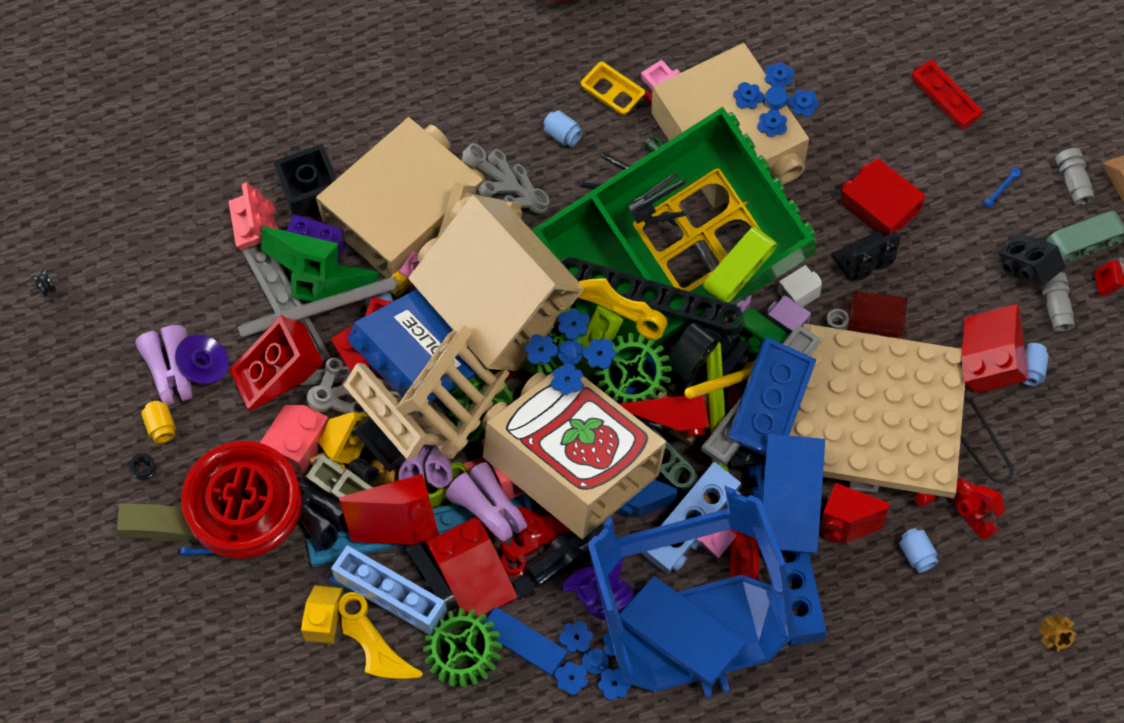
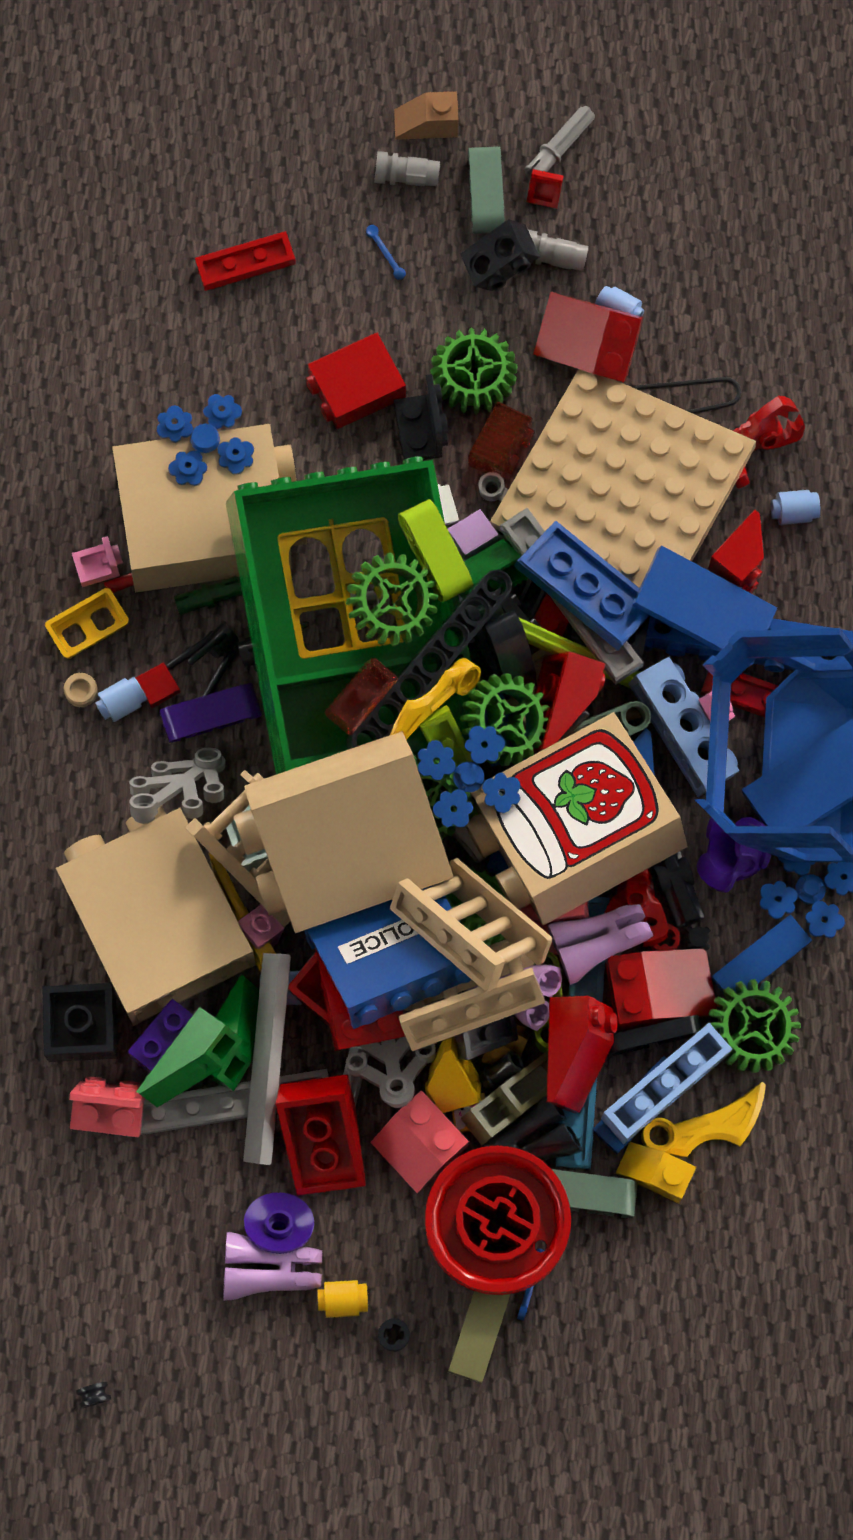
camera: 75 degrees left, 10 degrees up
(290, 572) = (599, 1193): none -> sand green beam
(562, 101) = (80, 690): none -> tan tile
(567, 179) = (210, 711): none -> dark purple beam
(585, 150) = (158, 685): none -> red tile
(602, 251) = (361, 695): none -> clear red brick
(643, 206) = (325, 628): black plant -> none
(678, 242) = (402, 611): none -> bright green gear
(720, 382) = (531, 599): yellow piece -> none
(925, 284) = (503, 368): none -> bright green gear

